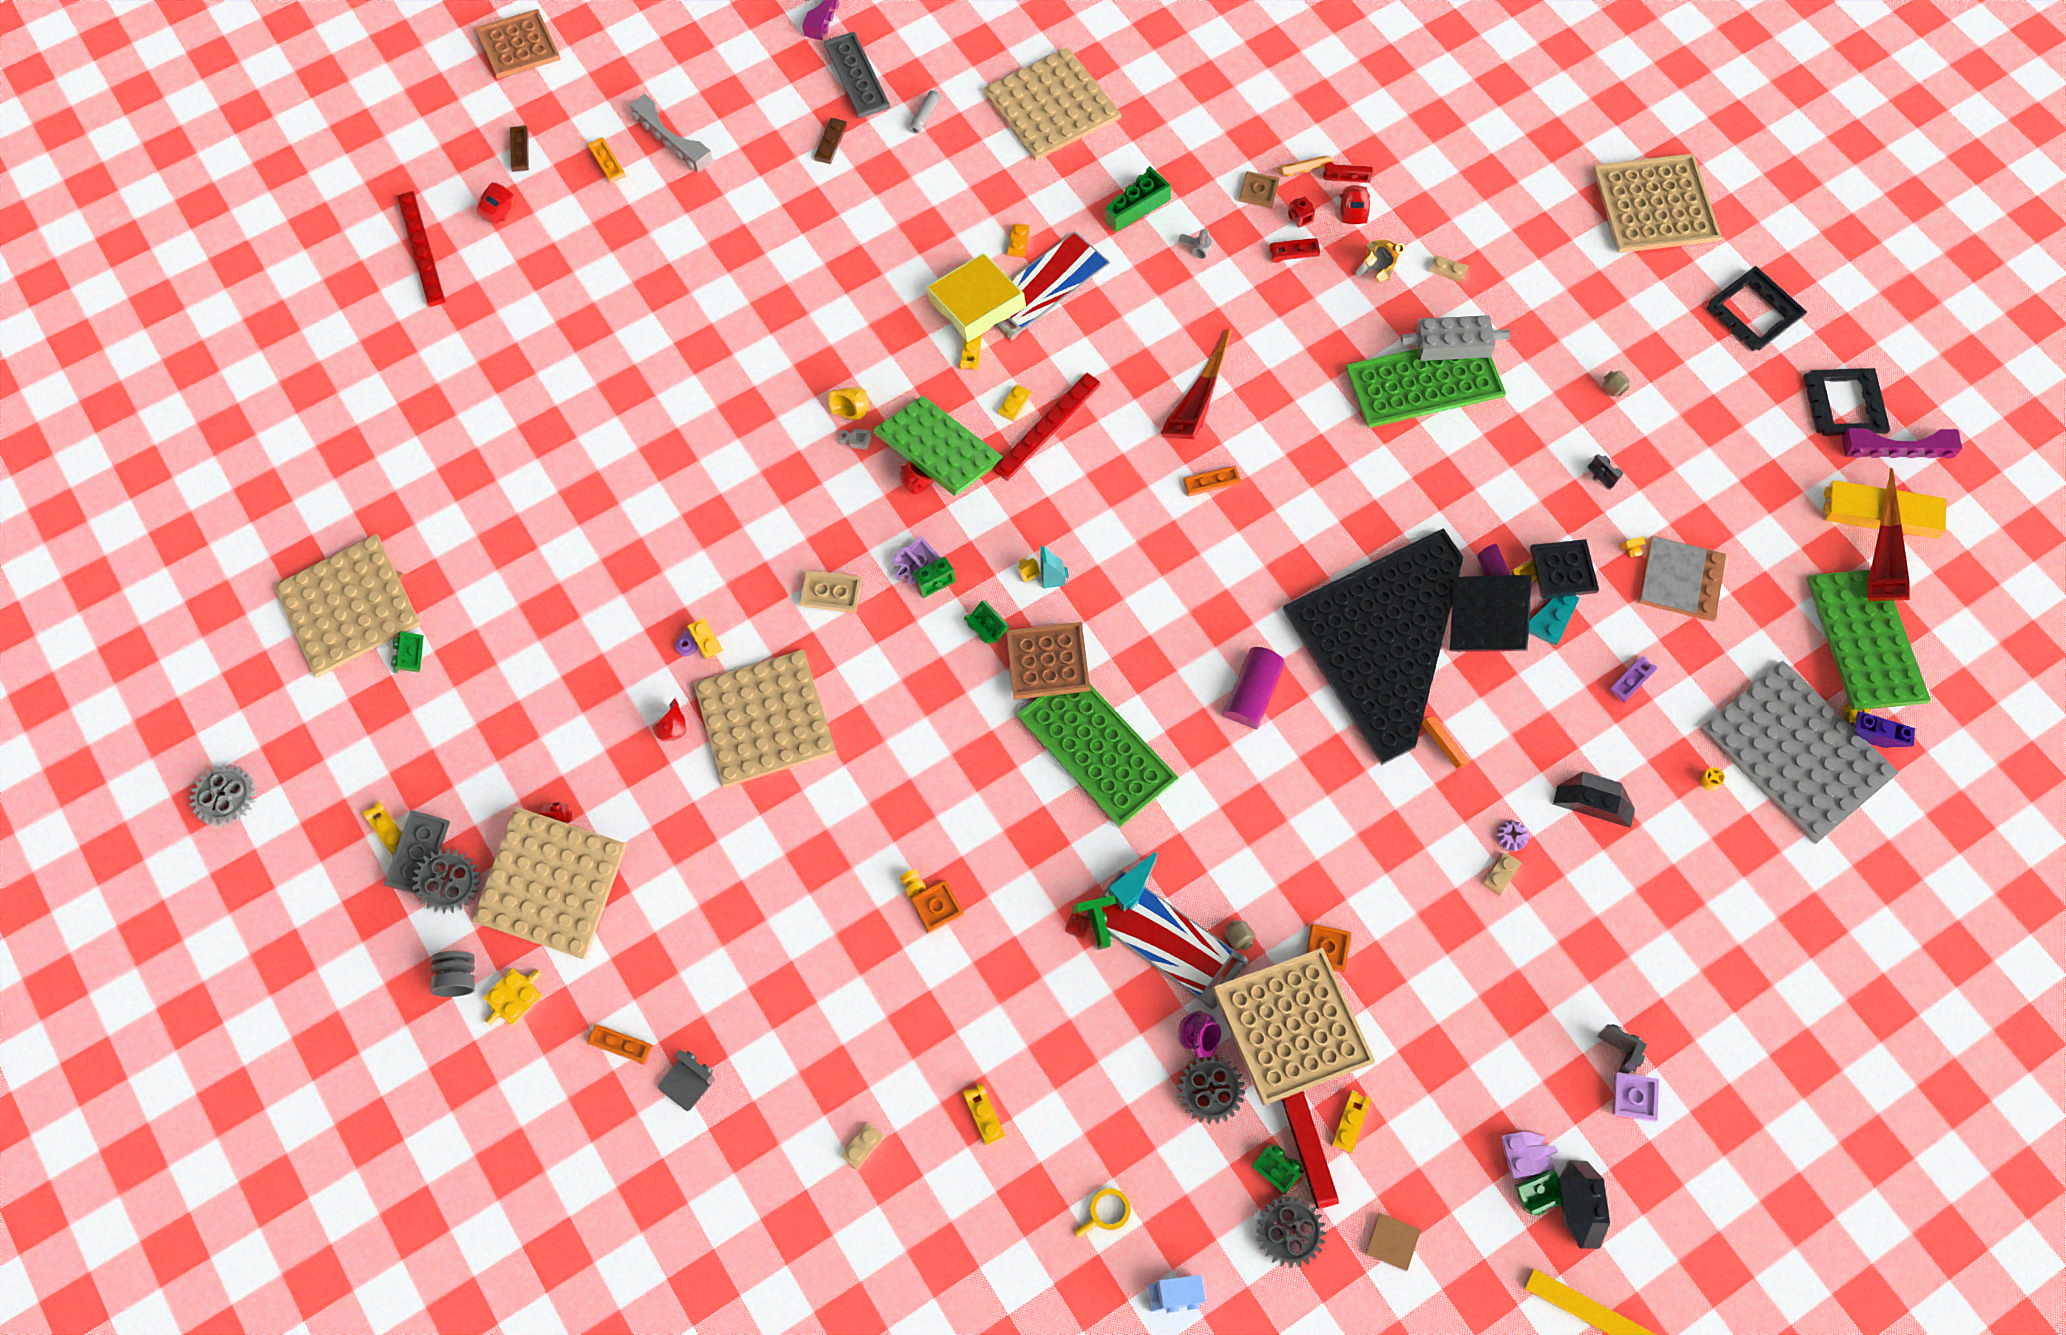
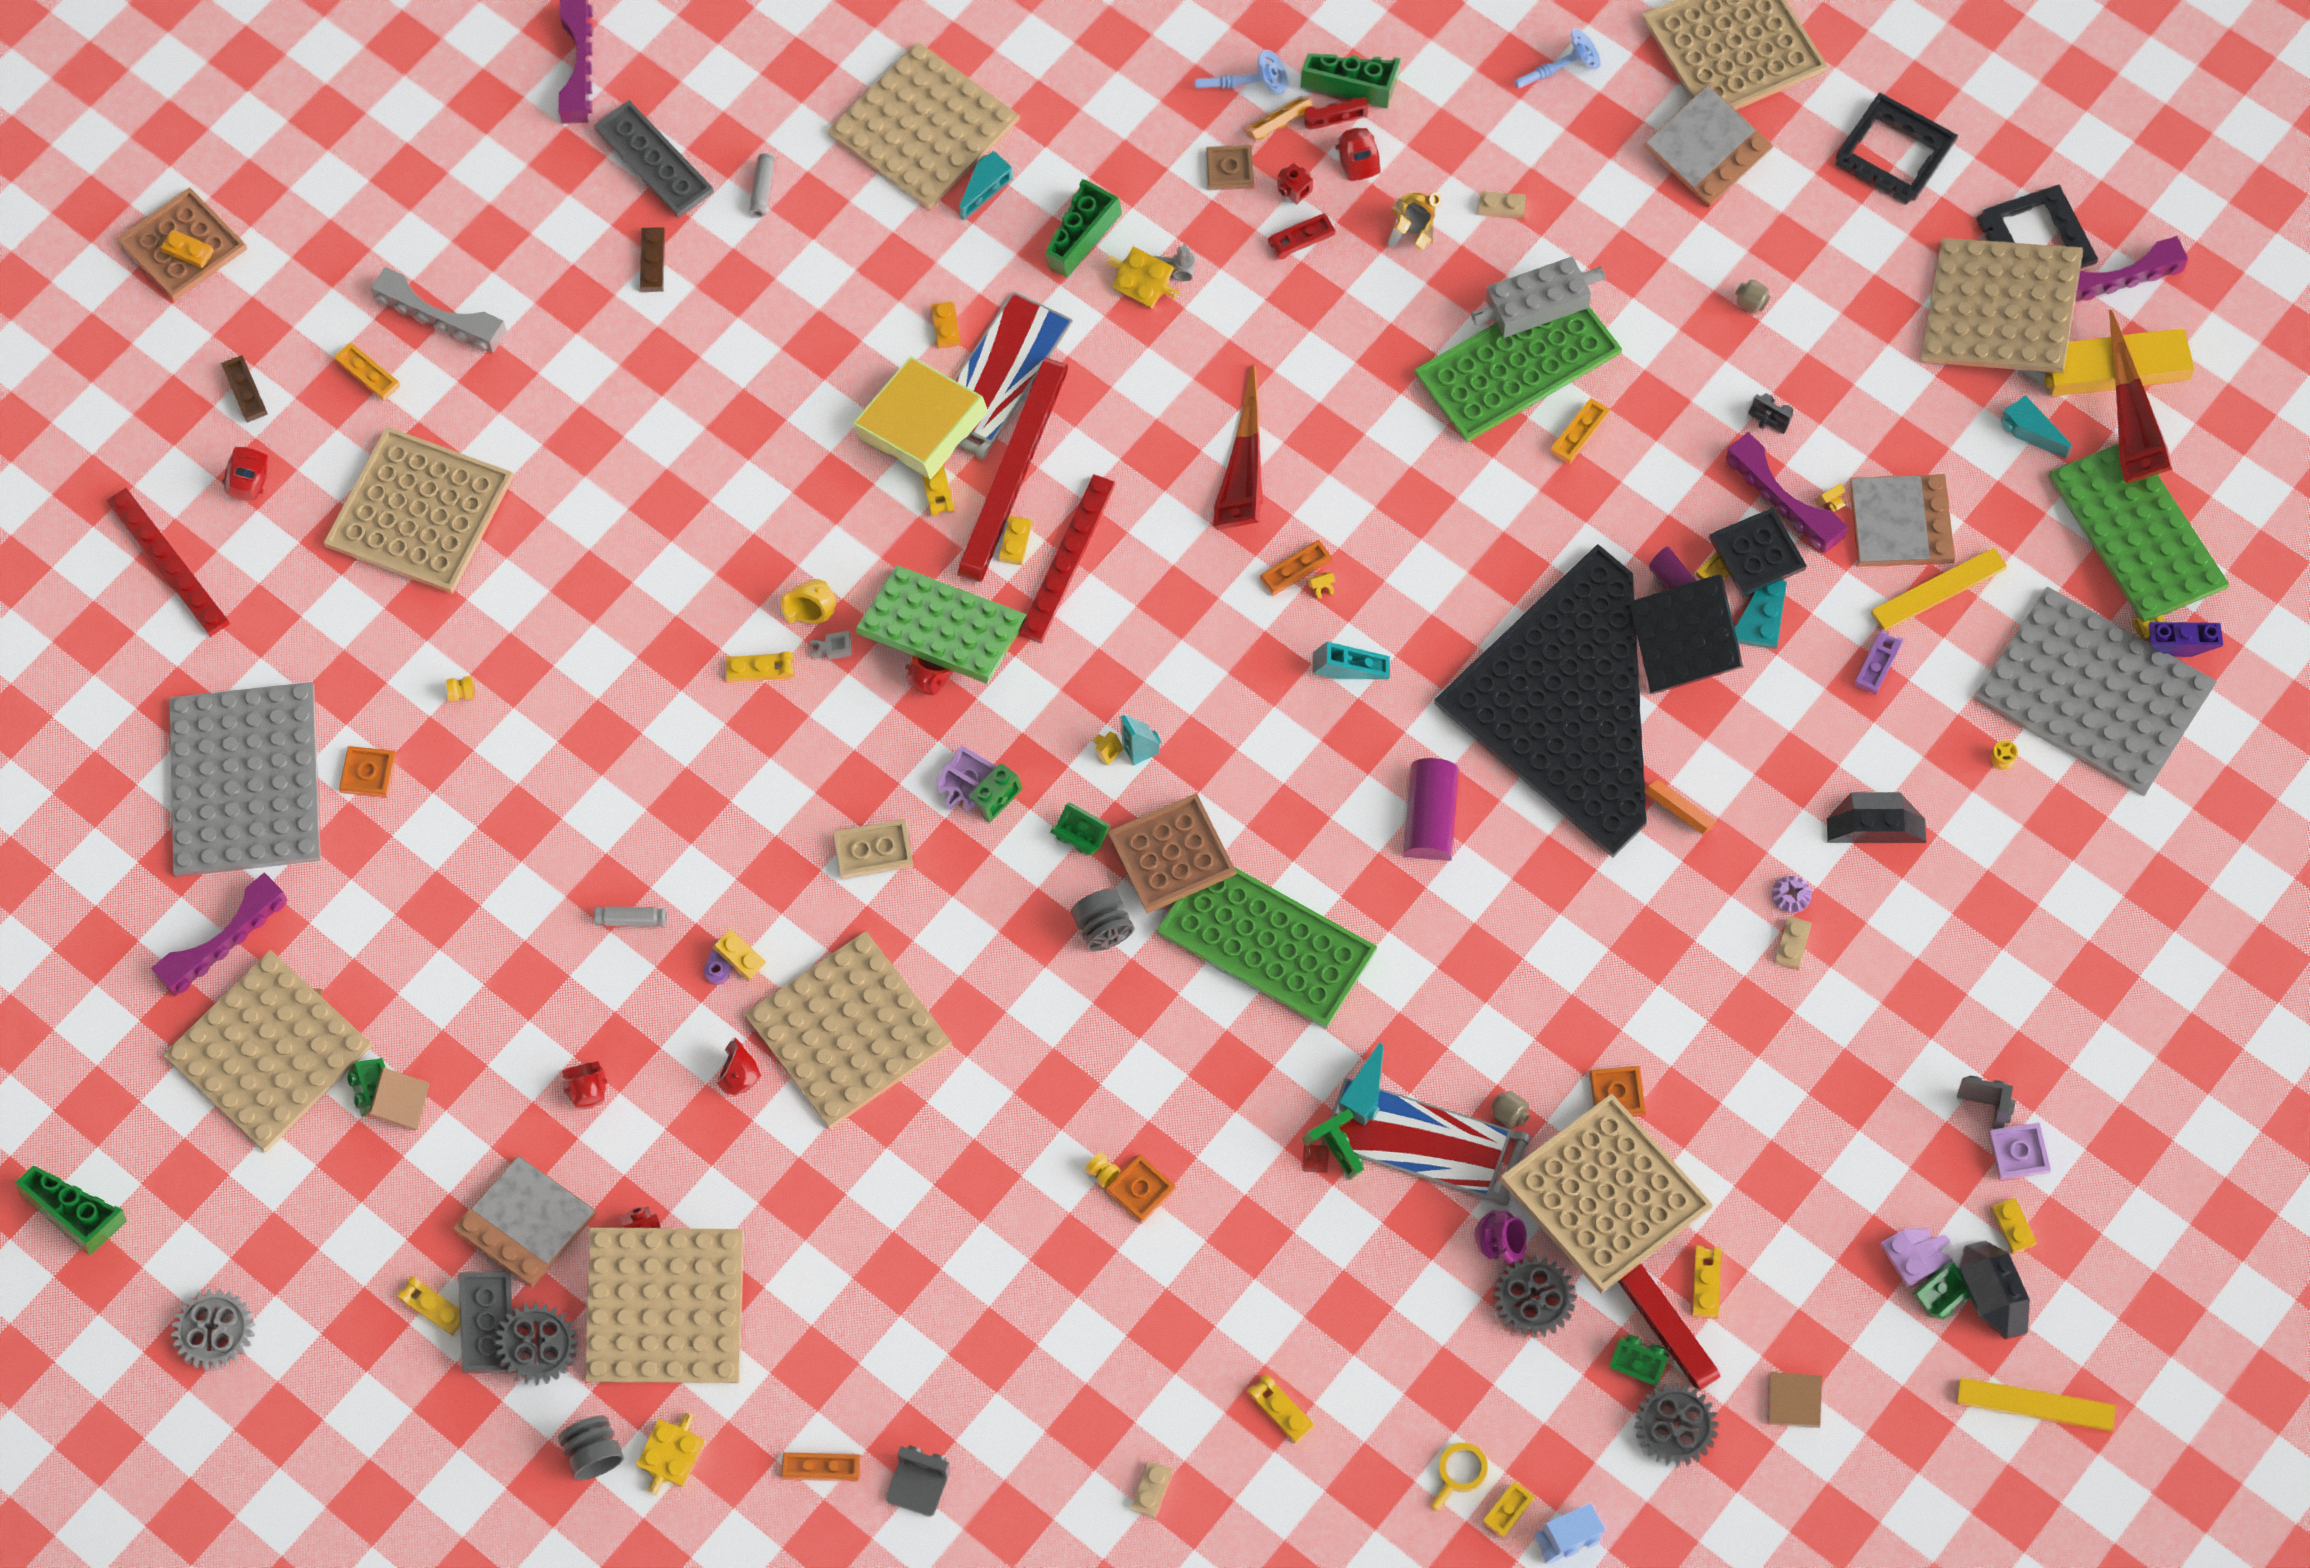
camera: 15 degrees left, 0 degrees up
(163, 680) = (74, 1212): none -> green wedge
(382, 499) = (181, 968): none -> magenta arch
(411, 411) = (244, 779): none -> light grey plate
(422, 668) = (399, 1099): none -> tile
(476, 786) = (525, 1221): none -> flat silver plate
(497, 430) = (367, 771): none -> orange tile
(518, 46) = (187, 249): none -> light orange plate
(557, 699) = (585, 1085): none -> red helmet
(582, 391) = (460, 688): none -> yellow wheel
(604, 262) = (419, 509): none -> tan plate
(639, 587) = (630, 916): none -> light grey axle
(798, 438) = (759, 667): none -> yellow plate
(978, 694) = (1102, 920): none -> dark grey wheel
(1029, 353) = (1012, 470): none -> red beam
(1082, 150) = (987, 179): none -> teal slope
(1134, 1257) = (1508, 1509): none -> yellow plate
(1170, 246) = (1142, 277): none -> yellow plate
(1227, 495) = (1322, 580): none -> yellow tile
(1227, 560) = (1346, 662): none -> teal slope
(1305, 133) = (1265, 75): none -> light blue dish
(1367, 150) = (1352, 77): none -> green wedge
(1456, 443) = (1580, 431): none -> light orange plate
(1539, 179) = (1579, 53): none -> light blue dish
(1613, 1156) = (2014, 1225): none -> yellow plate
(1615, 268) = (1708, 145): none -> flat silver plate
(1617, 564) = (1817, 524): none -> magenta arch
(1696, 638) = (1939, 589): none -> yellow tile
(1804, 537) = (2032, 426): none -> teal slope
(1807, 442) = (2002, 305): none -> tan plate

